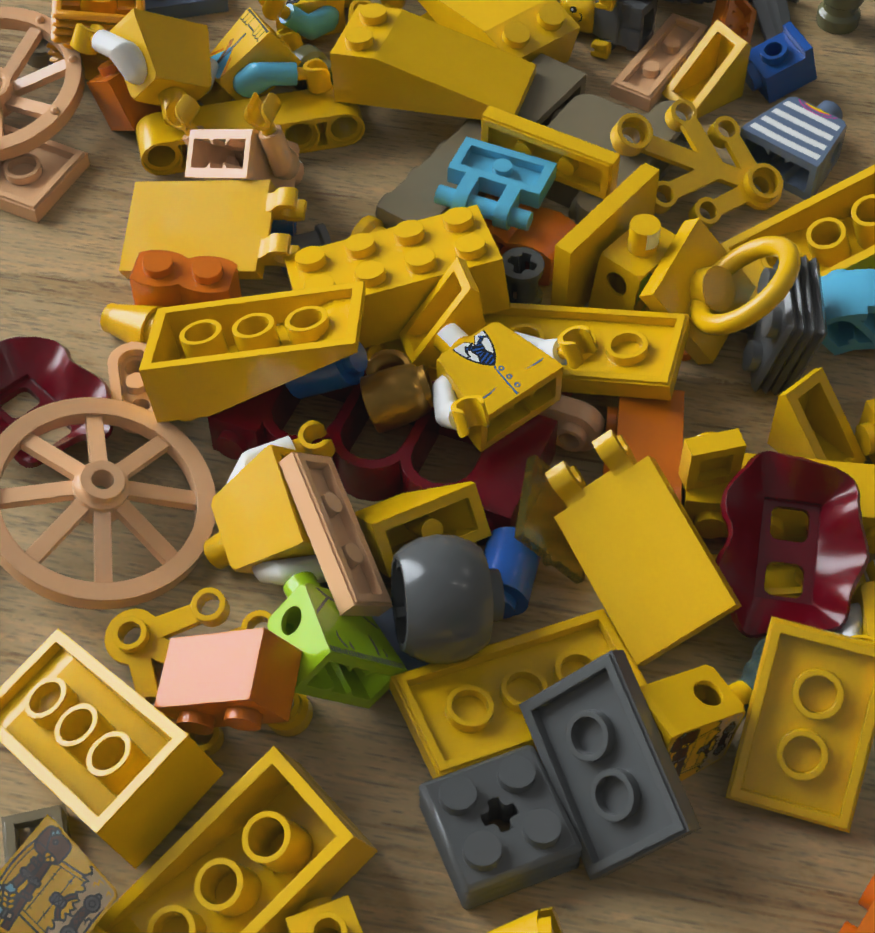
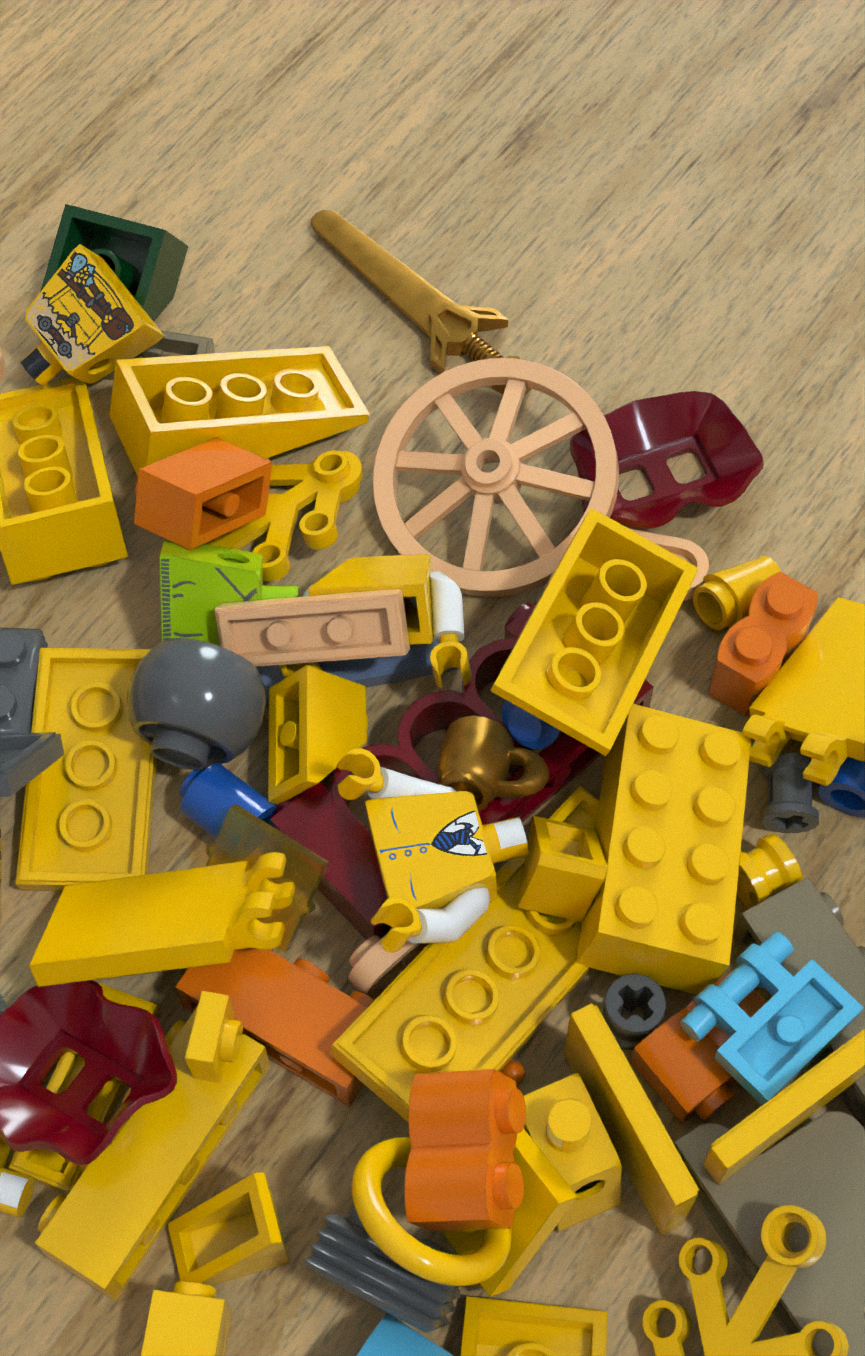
camera: 115 degrees right, 10 degrees up
(701, 267) = (463, 1151): none -> orange brick

